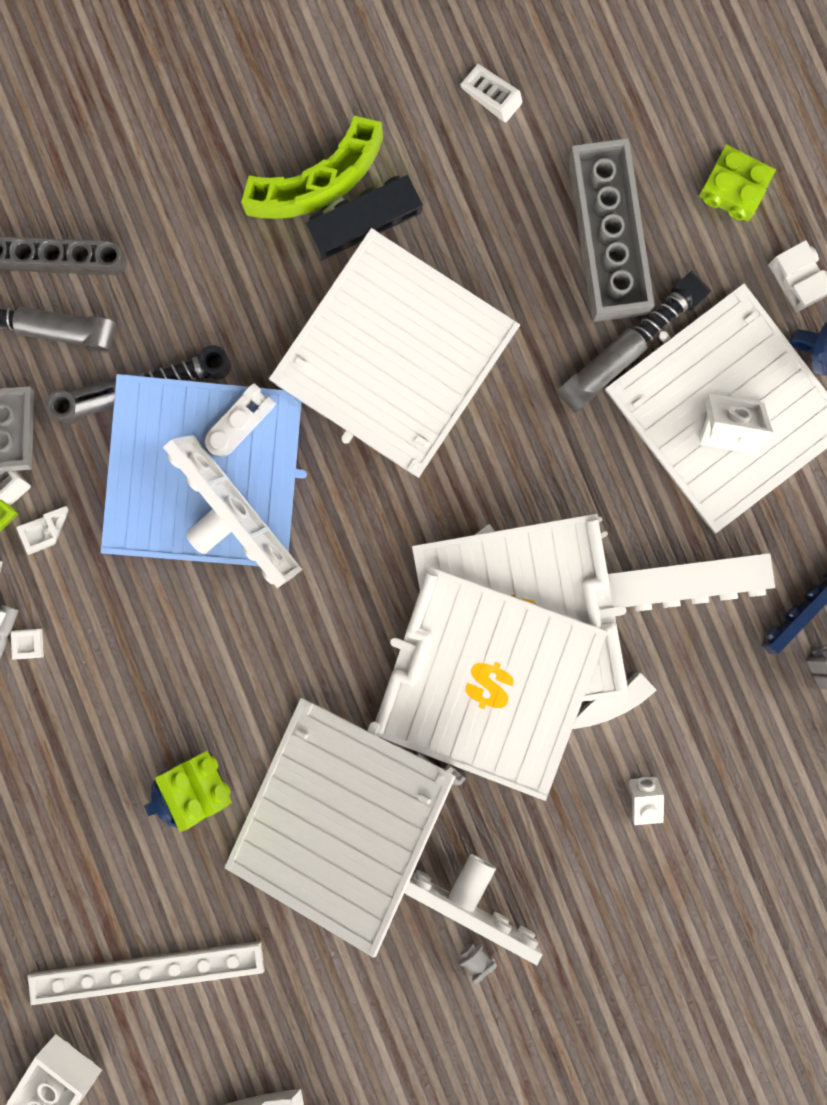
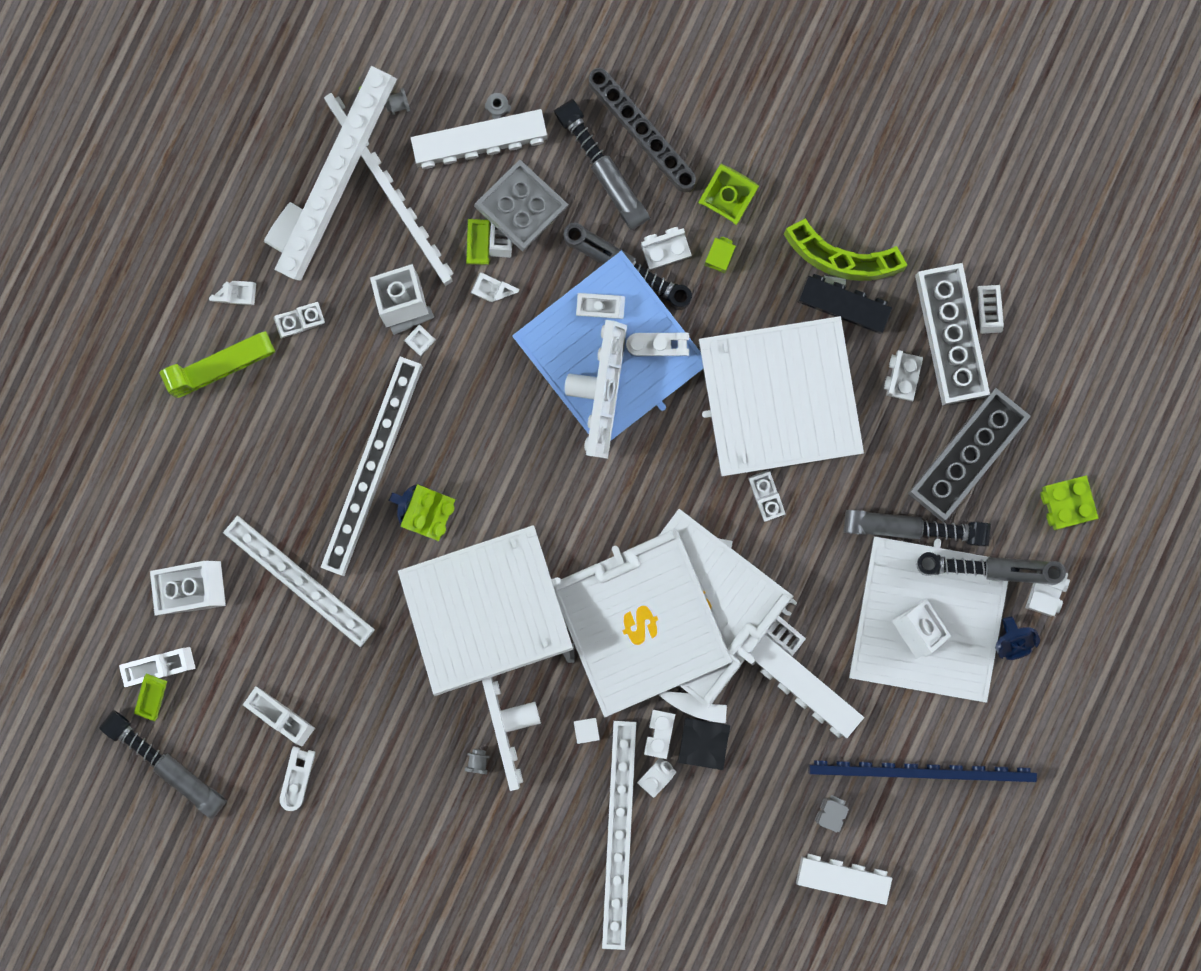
camera: 45 degrees right, 0 degrees up
(100, 804) = (372, 466): none -> white brick
(149, 442) = (600, 305): none -> white slope
(157, 334) = (665, 248): none -> white bracket
(160, 228) = (729, 193): none -> lime slope
(210, 289) = (720, 254): none -> lime brick
(475, 453) = (766, 495): none -> white slope
(480, 225) = (904, 375): none -> white bracket
(483, 143) = (952, 334): none -> white brick
(541, 827) = (586, 730): none -> white tile
(616, 771) = (662, 724): none -> white brick
(638, 554) = (785, 626): none -> white slope
(656, 728) = (704, 744): none -> black brick
(670, 889) = (619, 835): none -> white plate
(742, 301) = (994, 568): none -> piece

